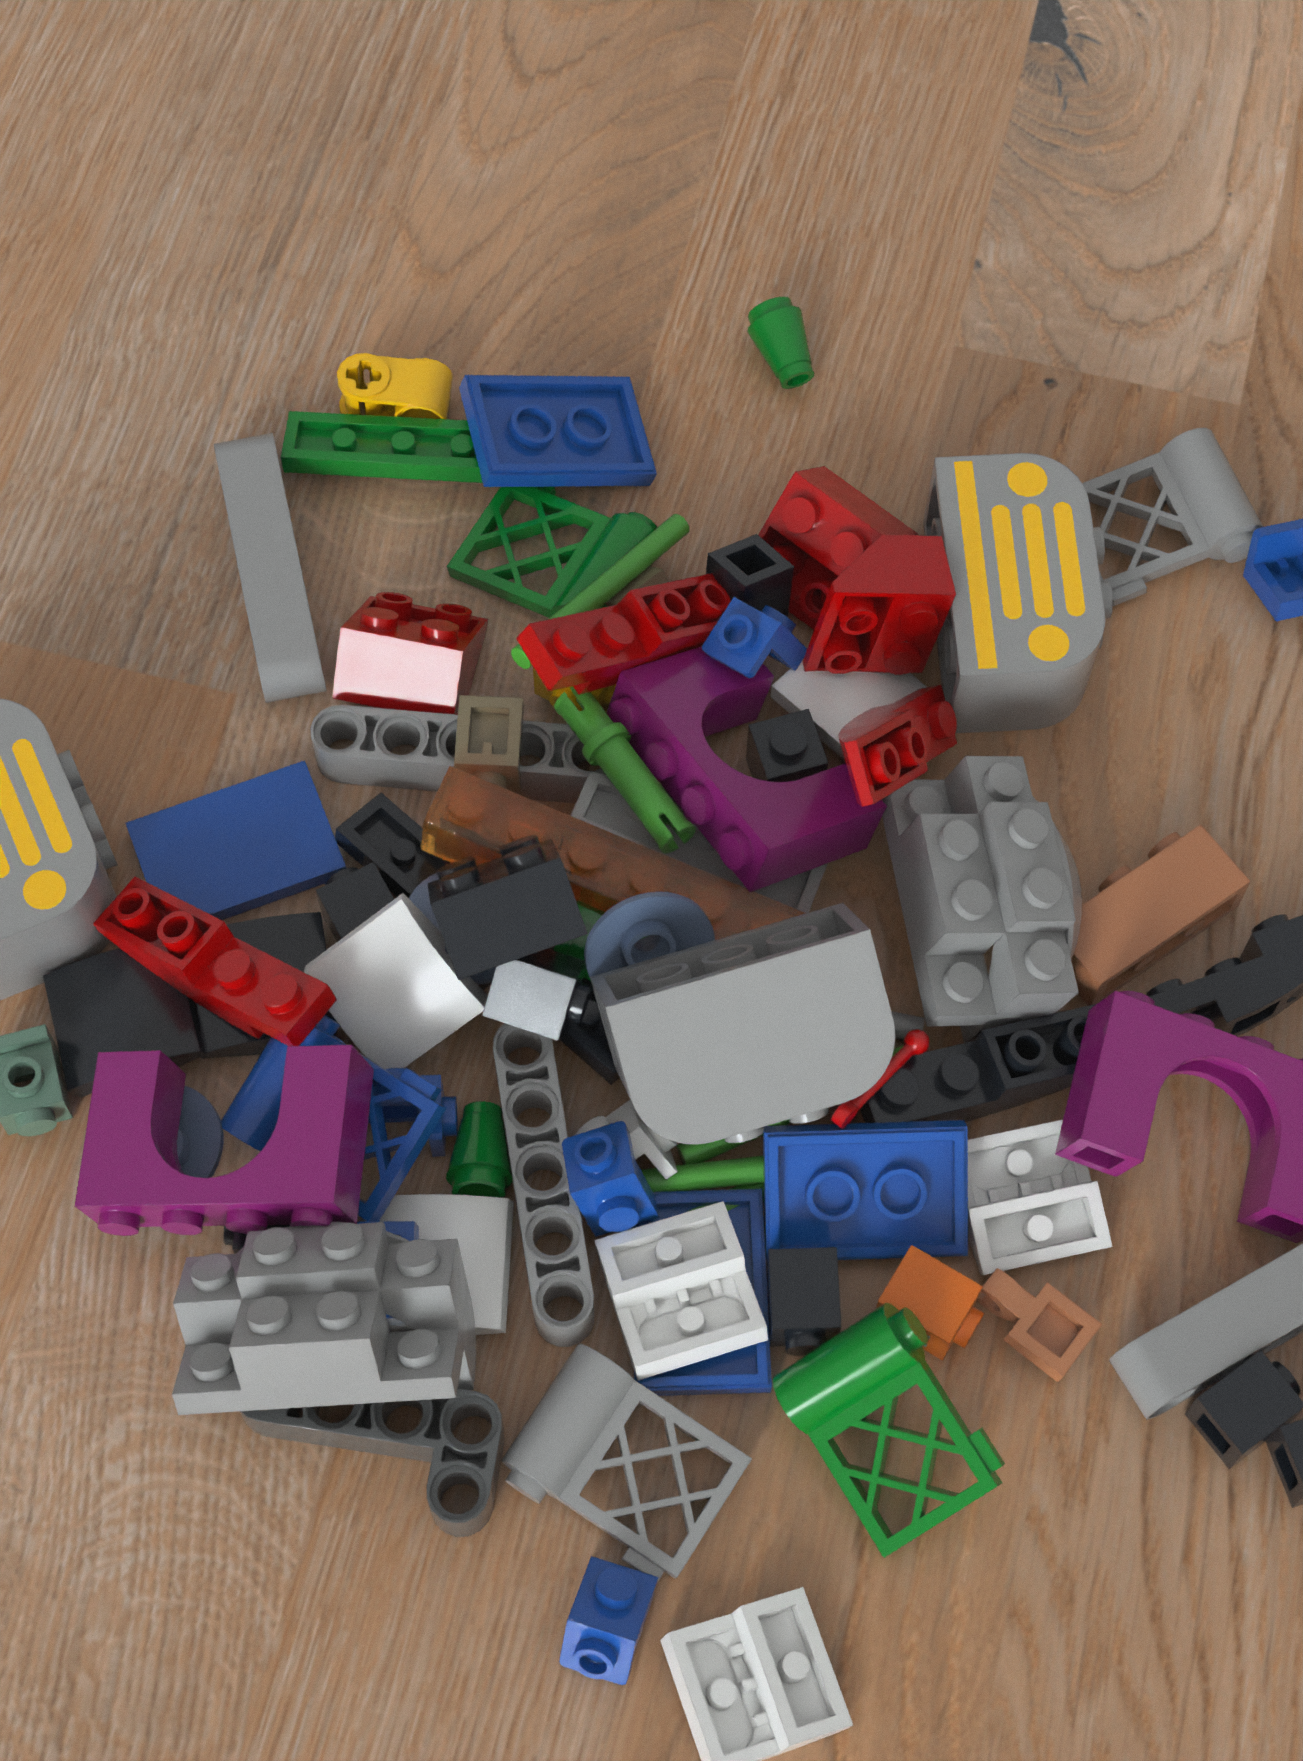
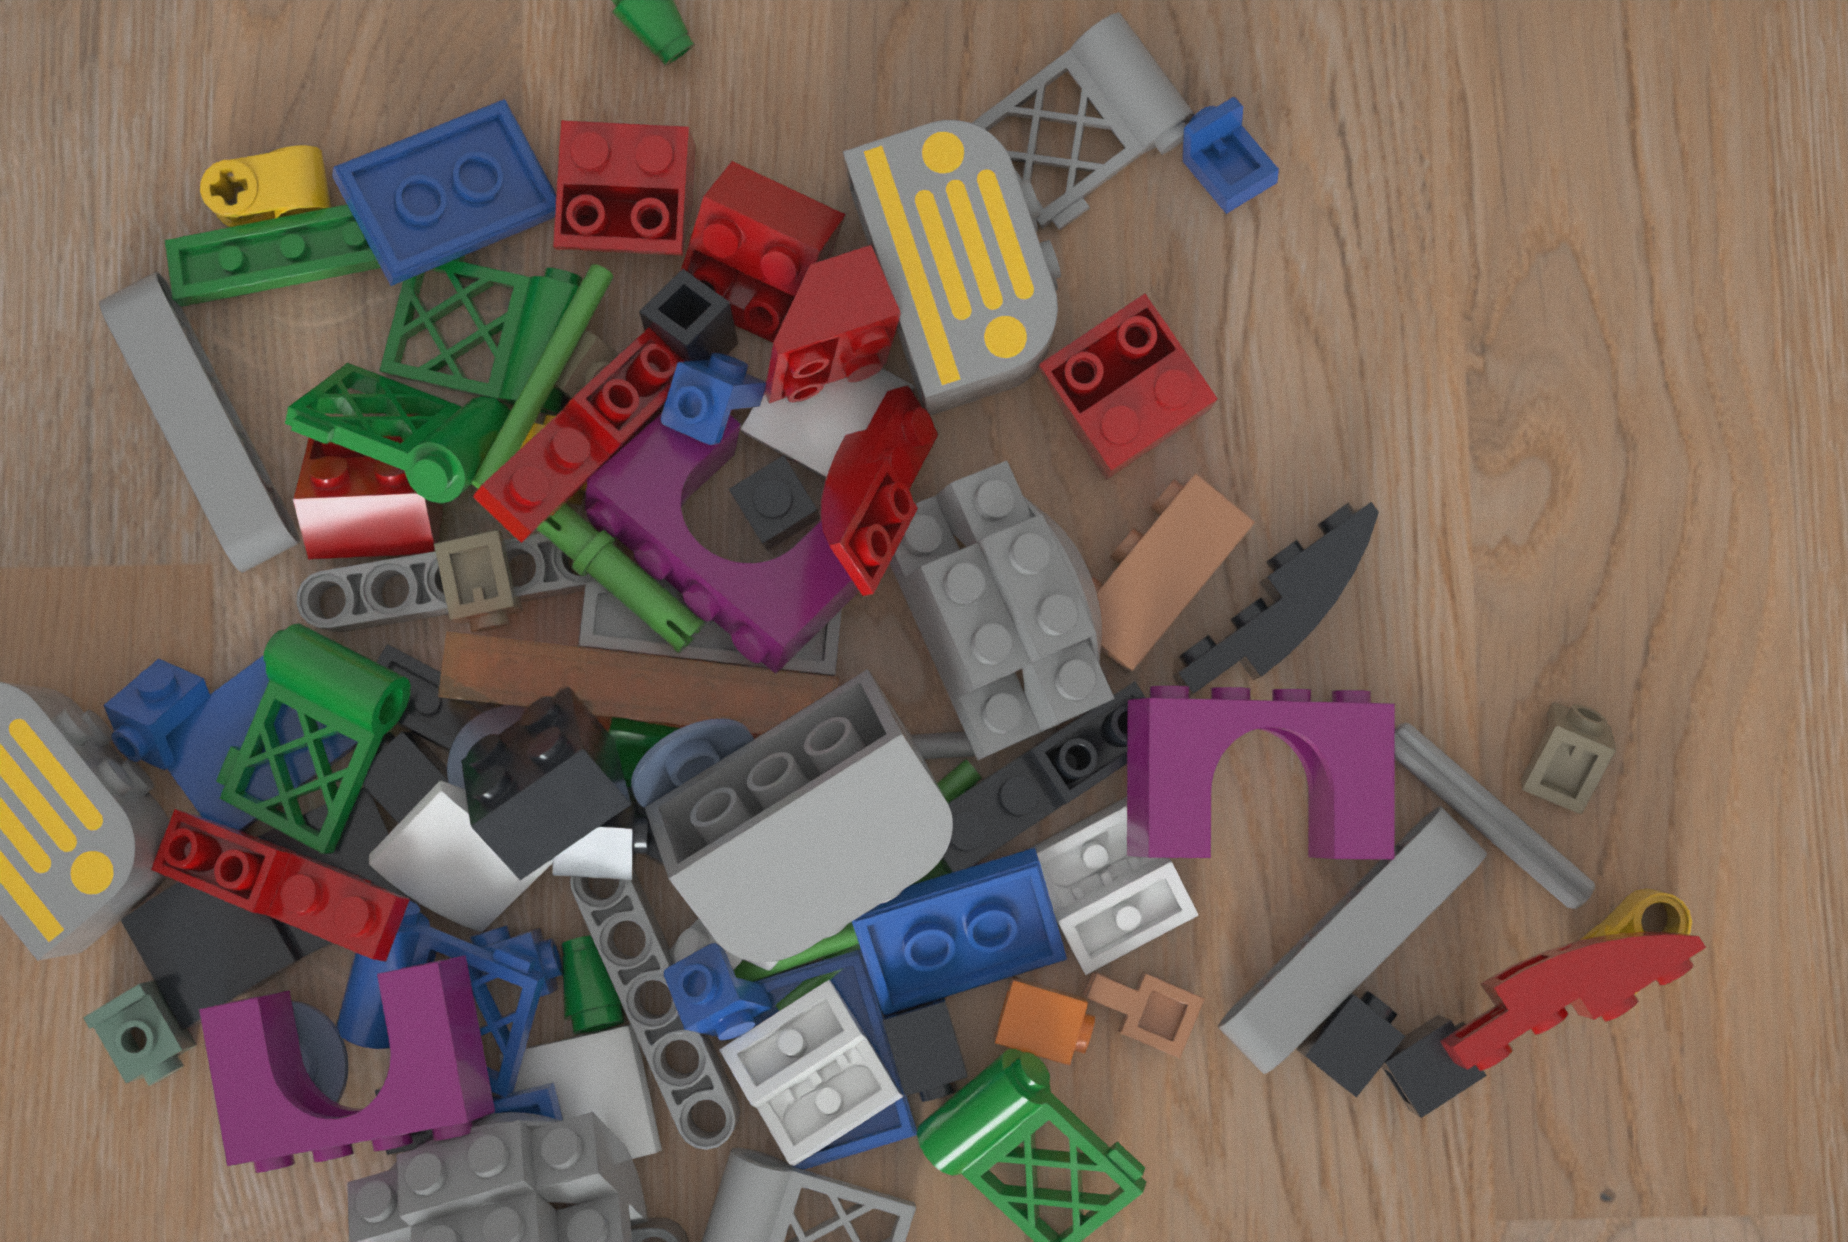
camera: 10 degrees left, 20 degrees up
(138, 787) = (152, 709): none -> blue bracket
(319, 804) = (325, 686): none -> green piece
(481, 625) = (437, 449): none -> green piece
(721, 458) = (624, 187): none -> red slope
(915, 1043) = (971, 784): red hinge -> none
(1150, 742) = (1126, 386): none -> red slope

